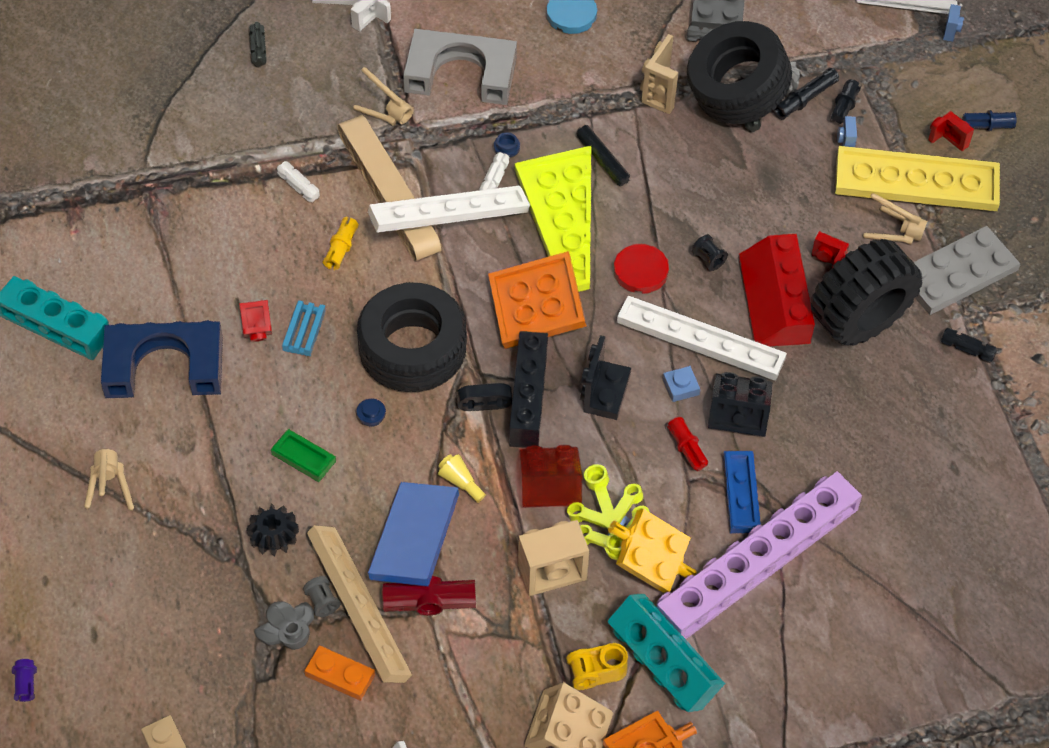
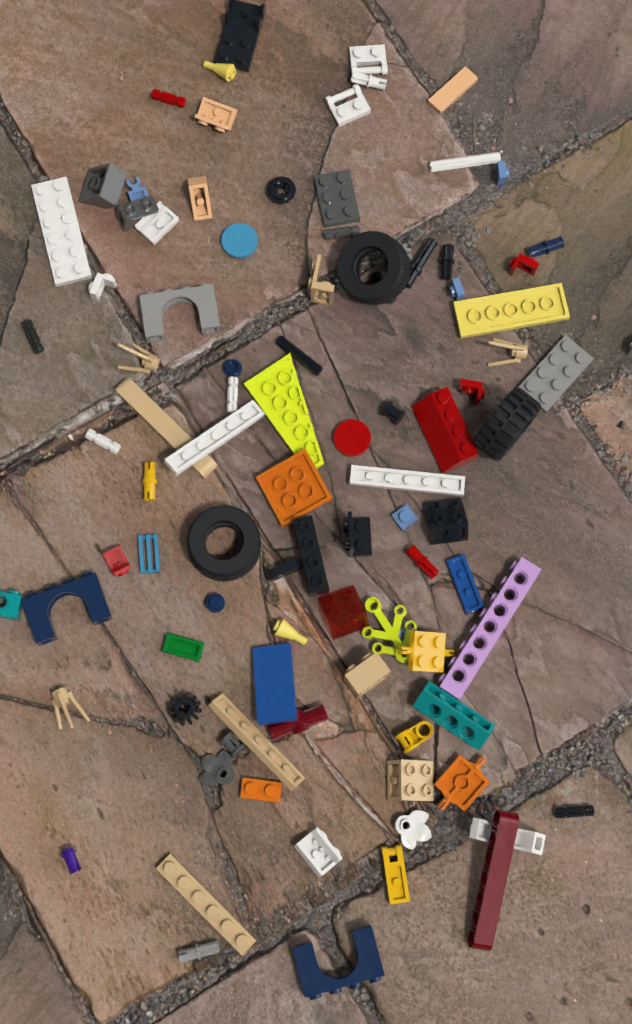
camera: 20 degrees left, 20 degrees up
(969, 344) = (576, 430): black axle -> none

